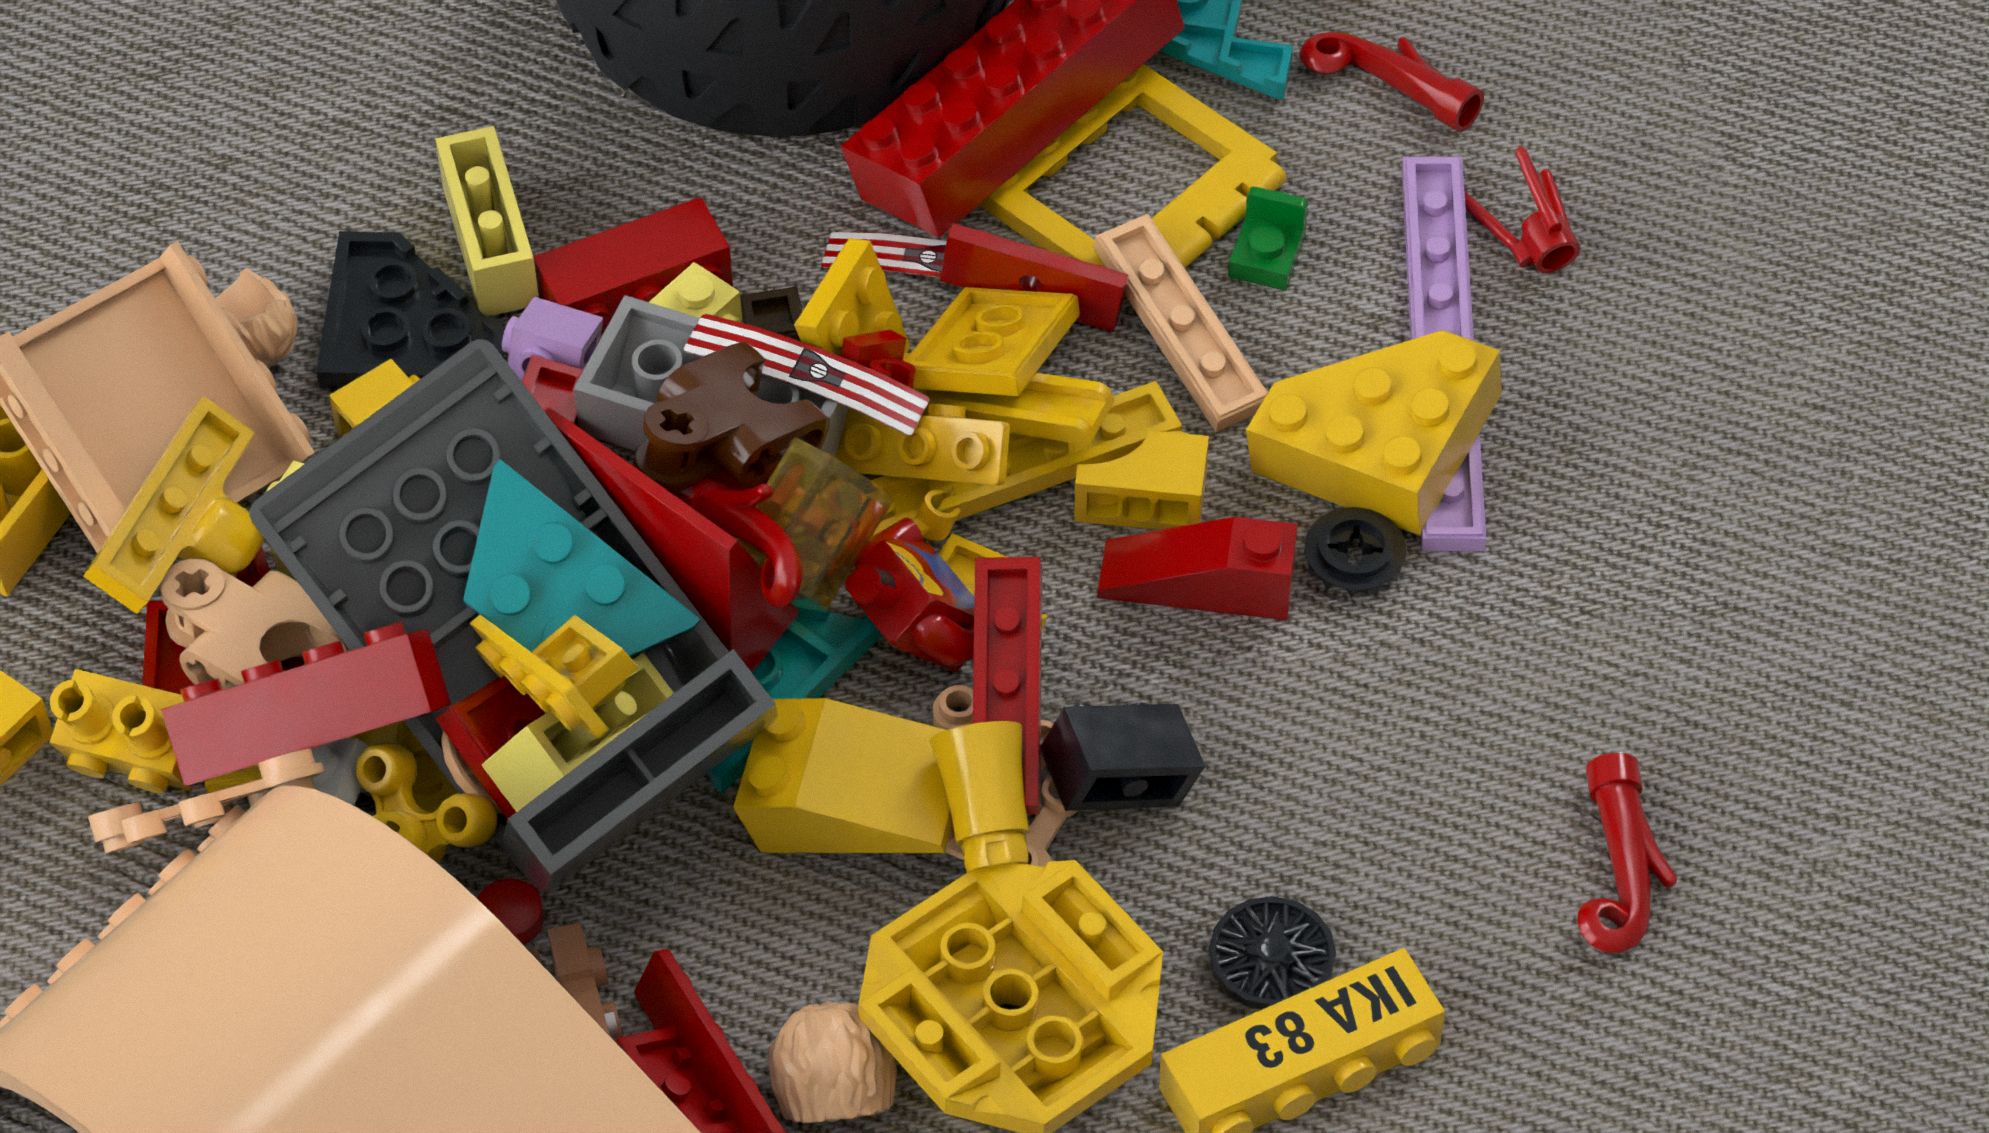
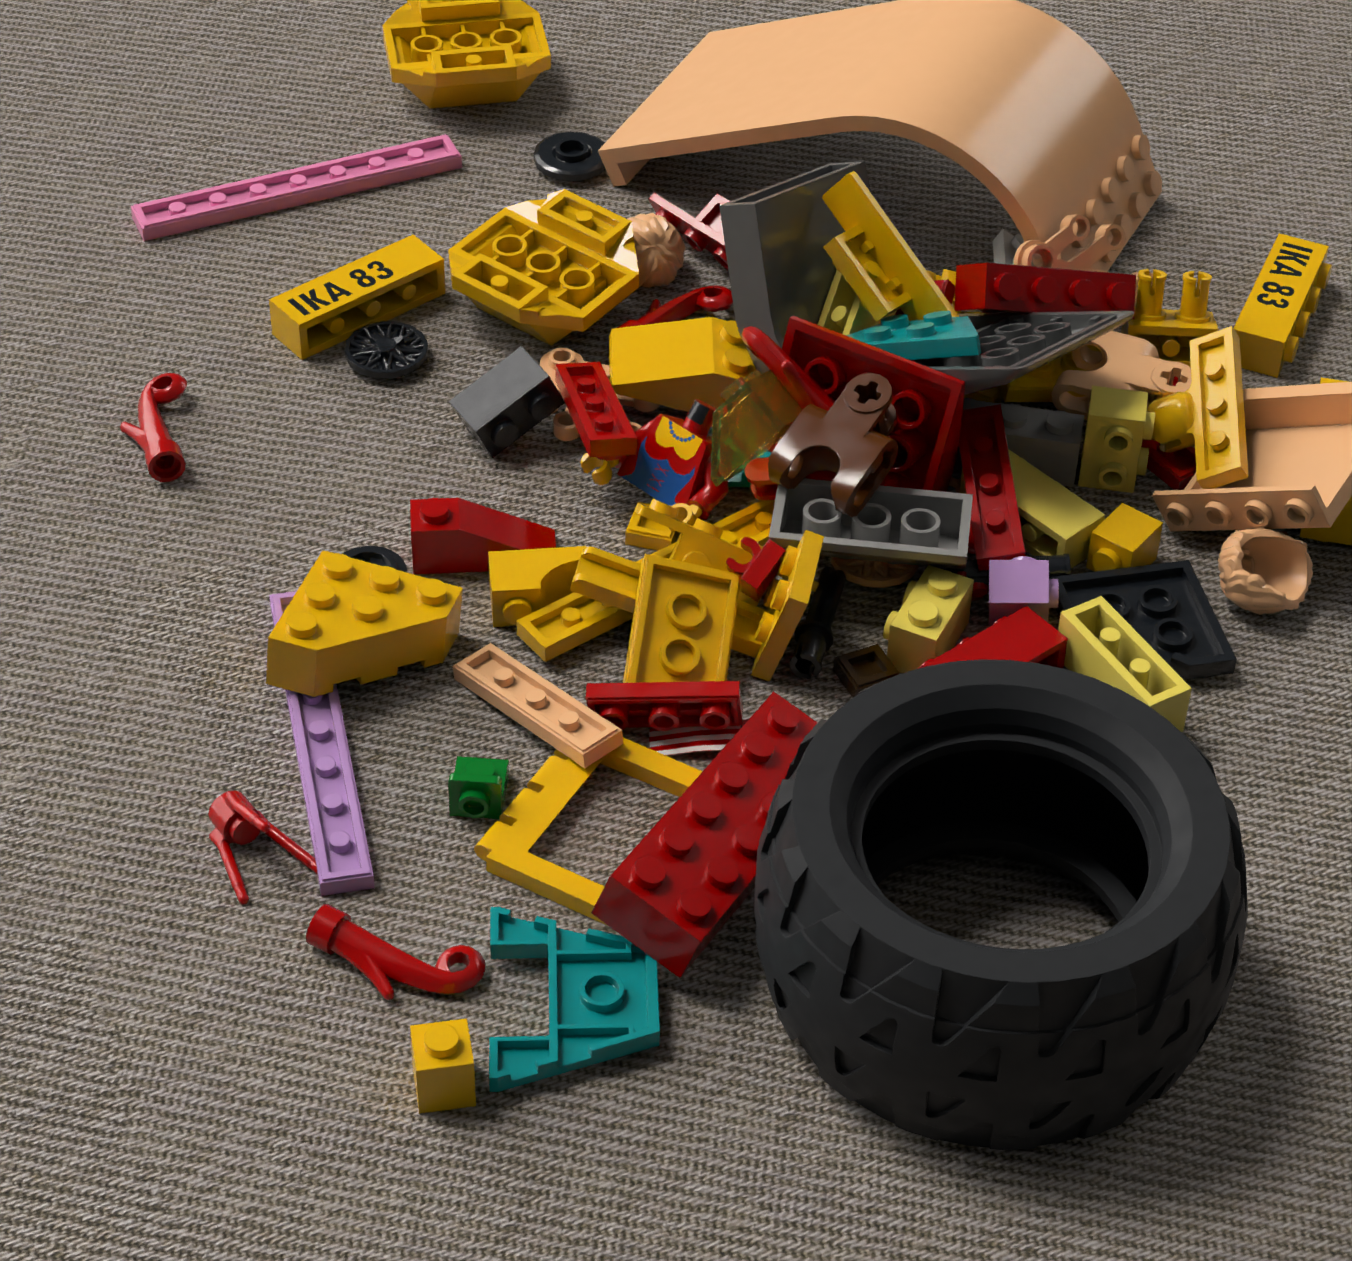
camera: 165 degrees right, 10 degrees down
(816, 371) = (796, 522): sticker -> none
(841, 945) = (707, 298): none -> red plant
(985, 791) = (595, 342): yellow plant -> none

